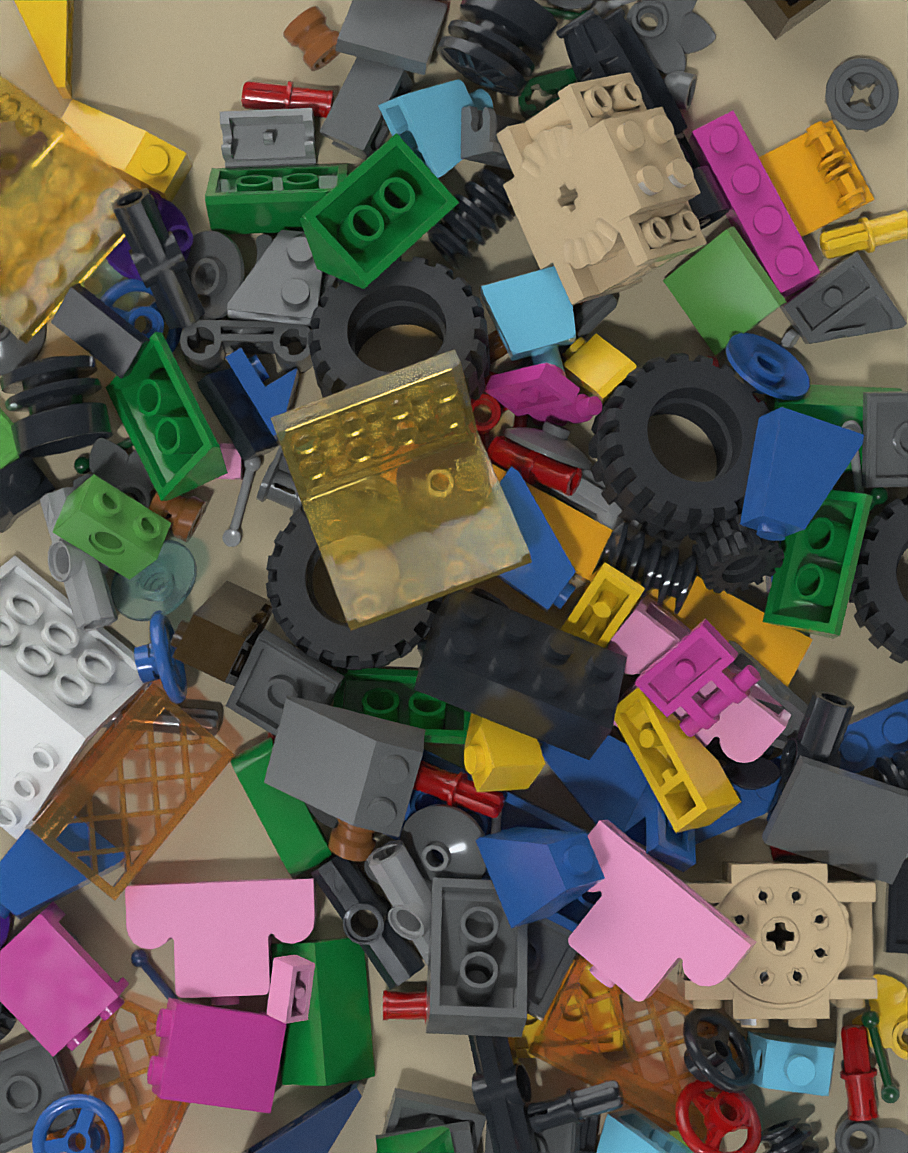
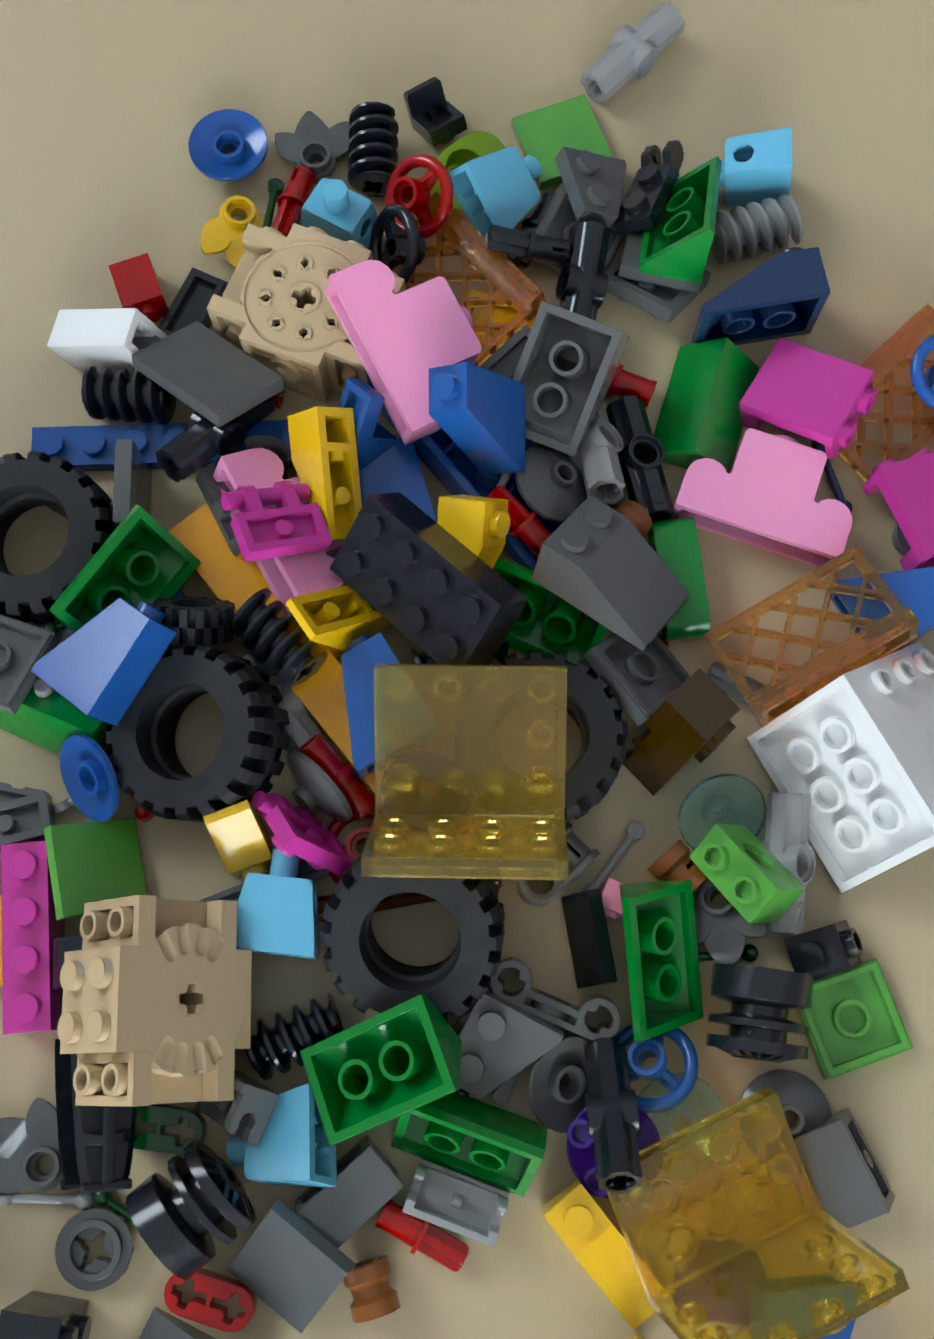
camera: 160 degrees left, 10 degrees down
(100, 330) = (693, 1068): black tile -> none
(156, 662) = (745, 741): blue piece -> none
(268, 400) = (555, 937): blue slope -> none
(290, 989) = (727, 423): bright pink piece -> none
(682, 88) = (43, 1085): dark grey hinge -> none
(866, 665) = (131, 480): none -> dark grey tile

